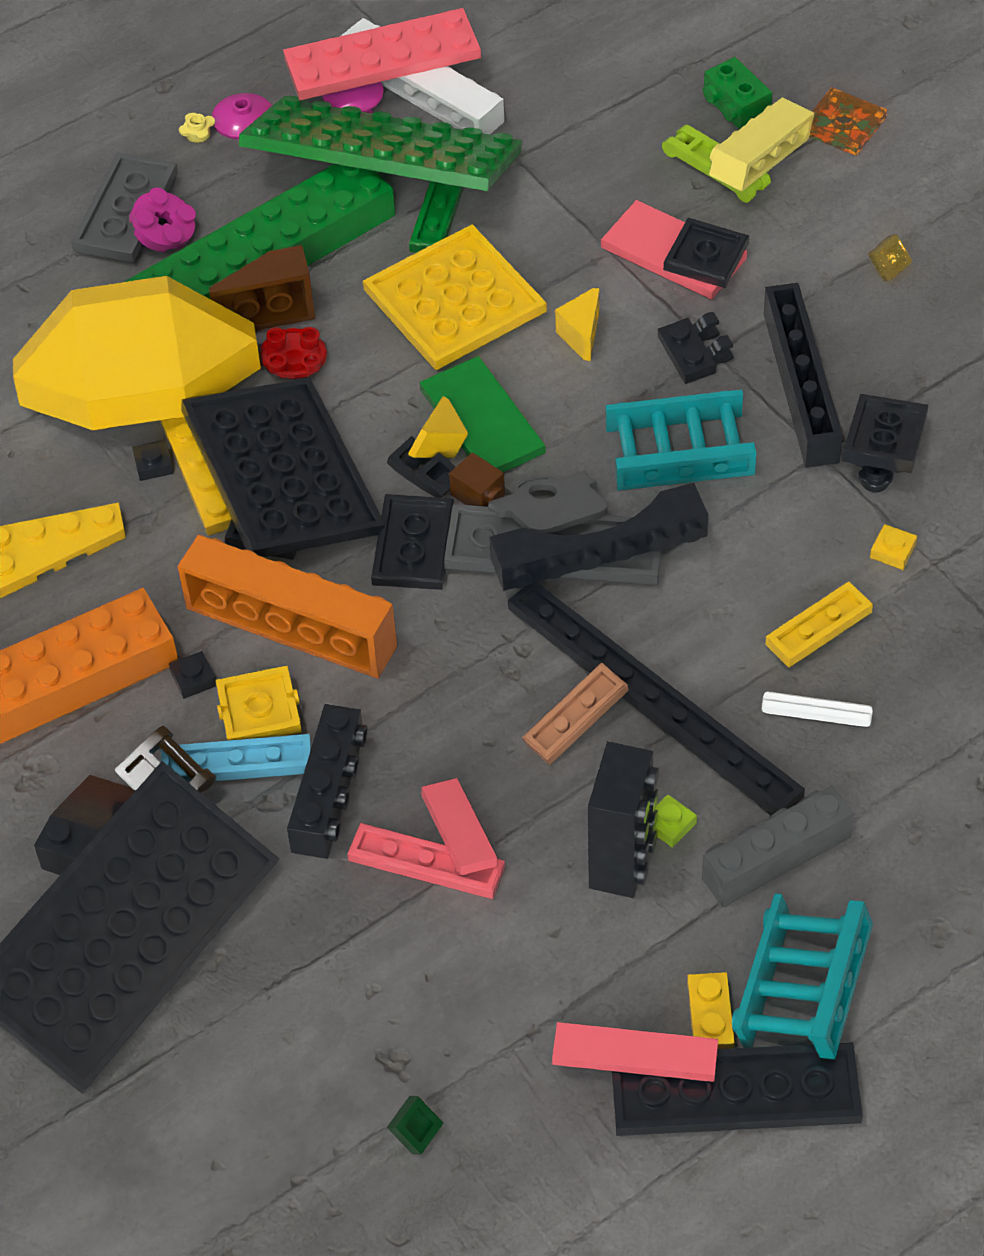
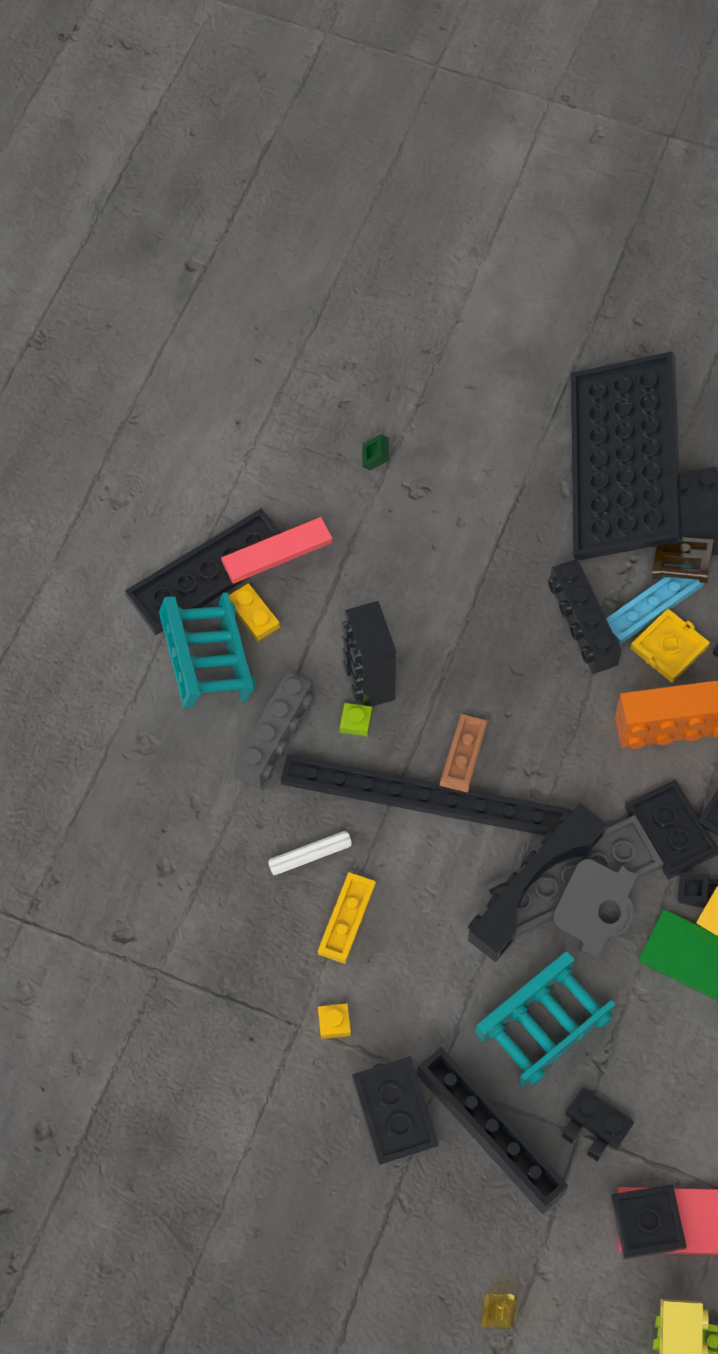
camera: 145 degrees right, 10 degrees up
(420, 860) = (487, 610): coral tile -> none
(459, 826) = (481, 634): coral tile -> none
(476, 482) = (659, 892): reddish brown brick -> none
(578, 322) = (694, 1087): yellow slope -> none

